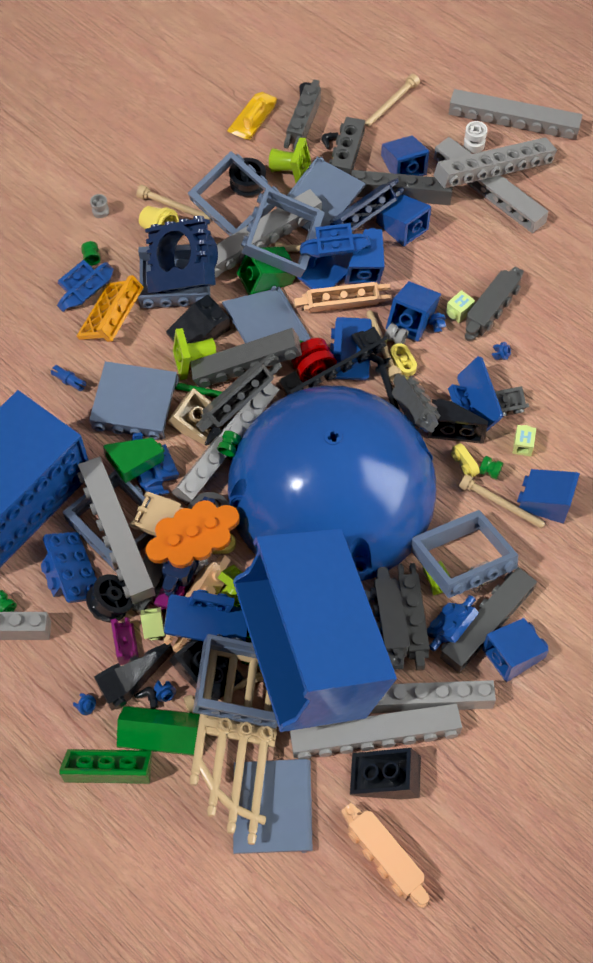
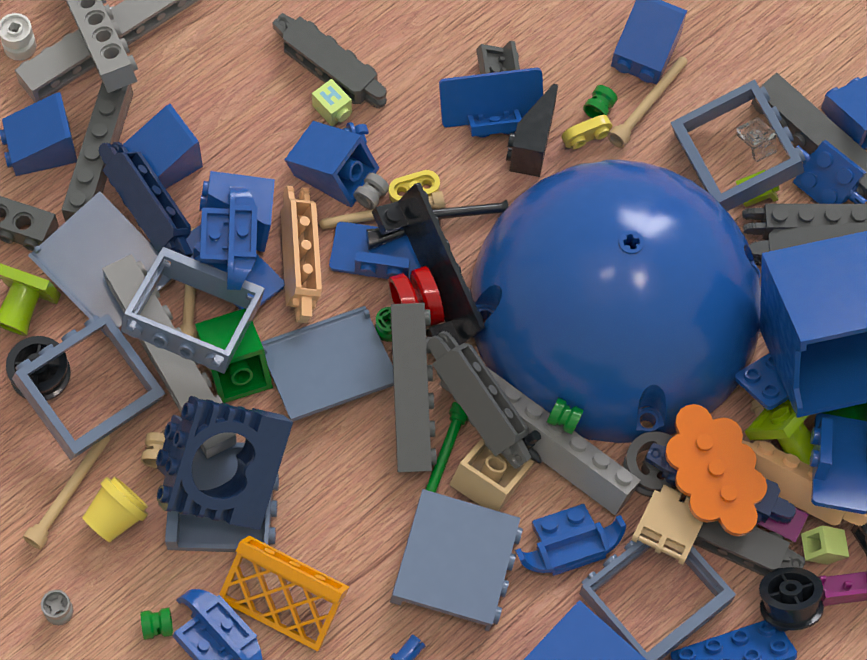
camera: 90 degrees left, 5 degrees up
(116, 529) = (697, 580): light grey brick -> none
(134, 457) = (572, 554): green slope -> none
(188, 352) = (382, 478): lime plant -> none
(202, 321) = (325, 462): black slope -> none
(415, 402) = (511, 170): dark grey hinge -> none
(503, 349) = (412, 59): blue plate -> none
(524, 440) = (560, 57): yellowish green brick -> none

